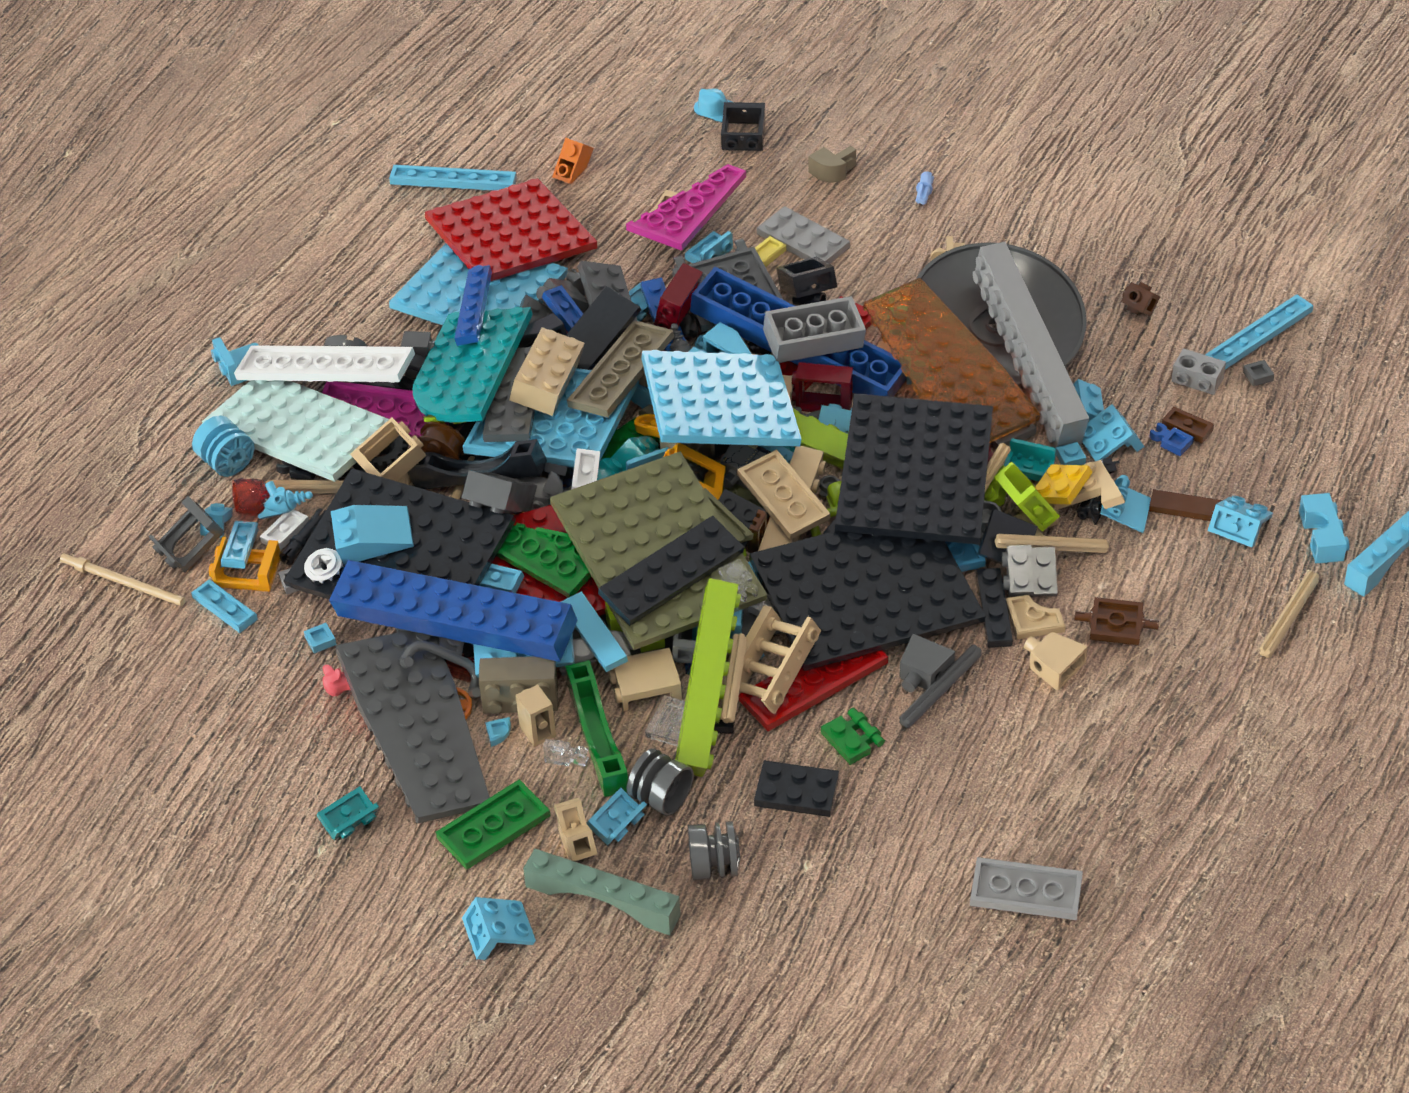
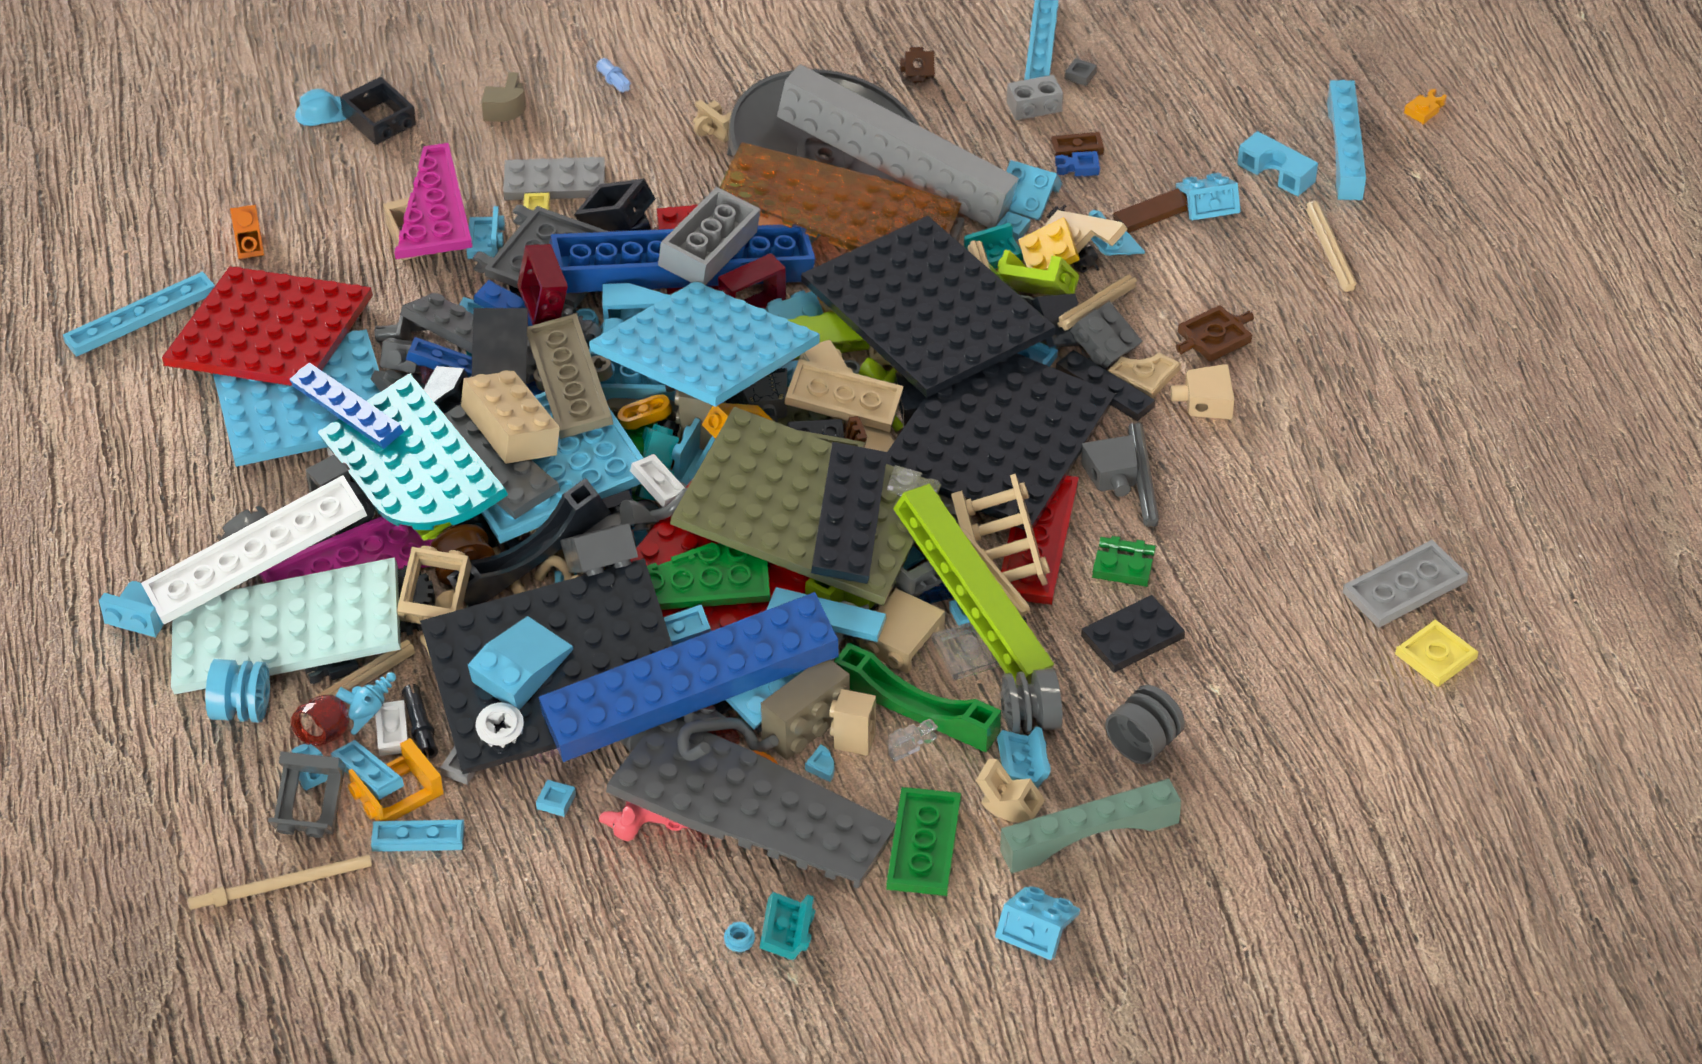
camera: 45 degrees left, 0 degrees up
(316, 800) = (739, 930): none -> medium azure plate
(989, 953) = (1436, 653): none -> light yellow tile

